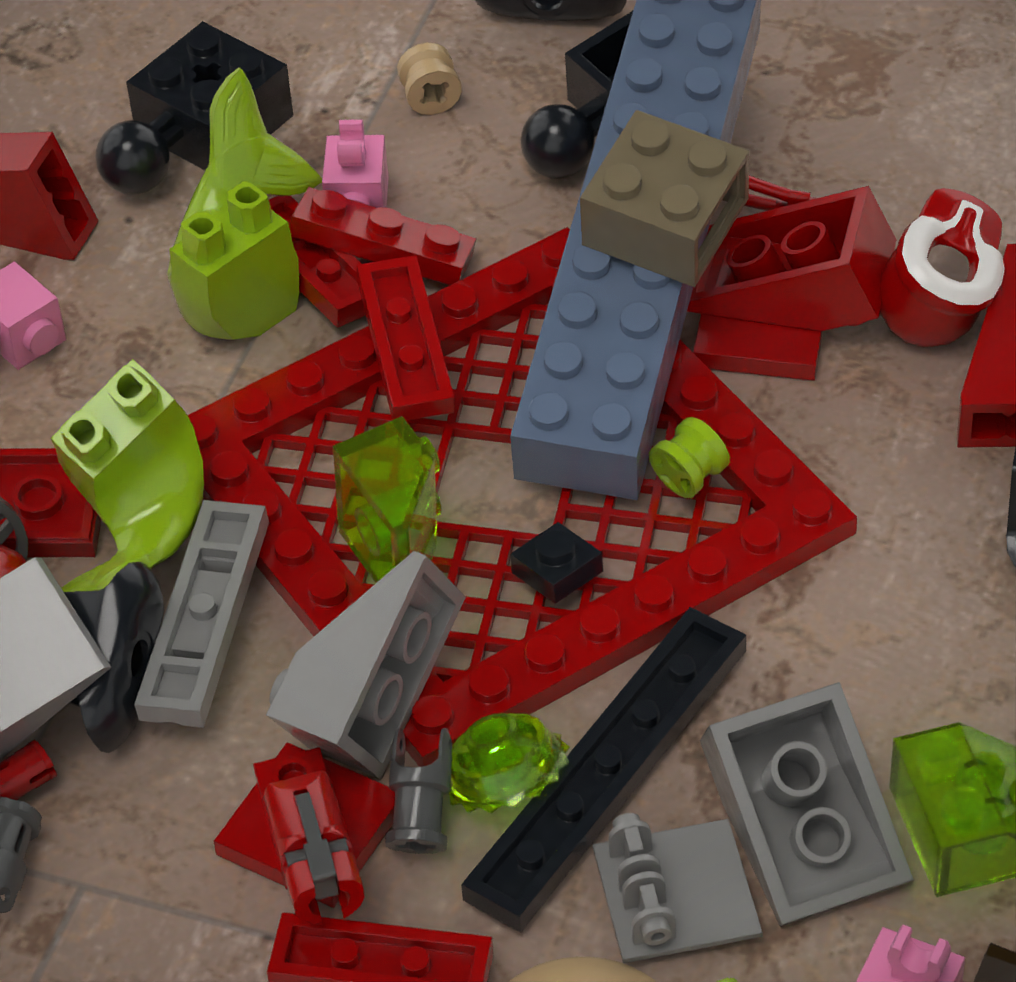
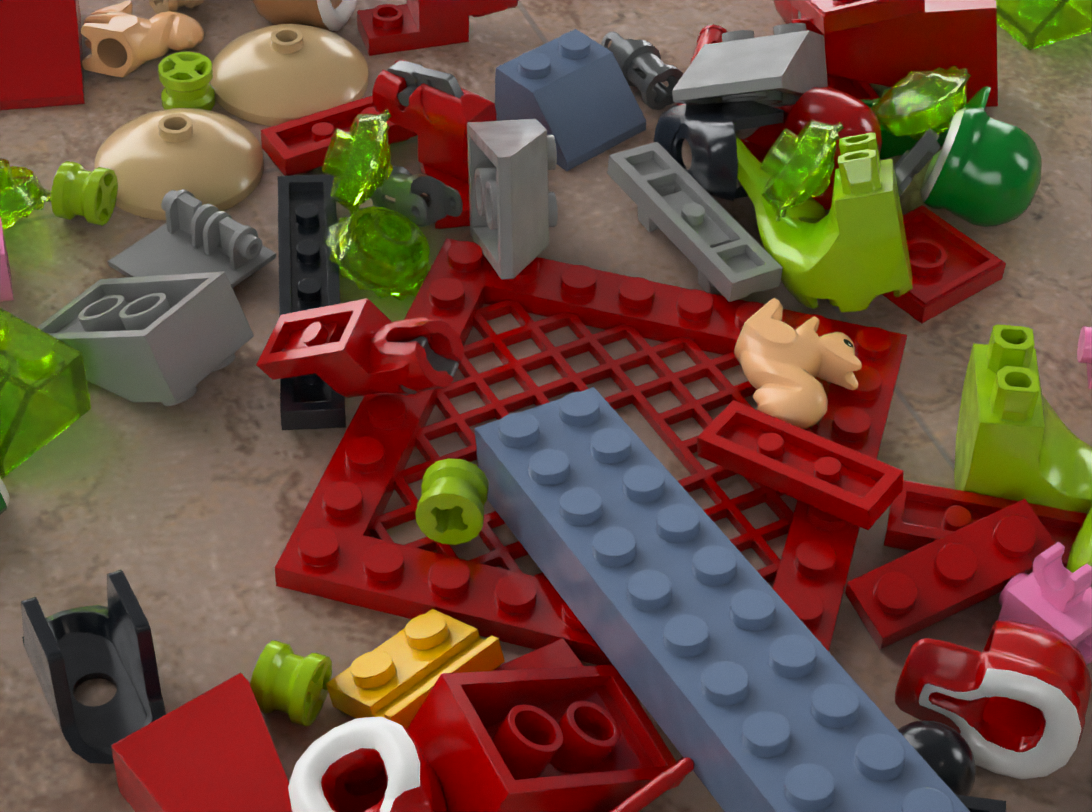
camera: 135 degrees right, 5 degrees down
(114, 495) = (800, 165): none -> clear neon green piece
(127, 864) = (573, 93): none -> sand blue slope
(306, 425) = (787, 360): none -> light nougat animal
(387, 495) = (619, 294): clear neon green slope -> none
(450, 816) = (359, 160): none -> clear neon green piece
(452, 142) = (1012, 703): none -> red piece
(556, 562) = (484, 390): black plate -> none
(661, 194) = (646, 549): dark tan piece -> none
(662, 586) = (363, 350): none -> red plate
(821, 381) = (404, 669): none -> yellow plate
(917, 417) = (291, 682): none -> lime wheel

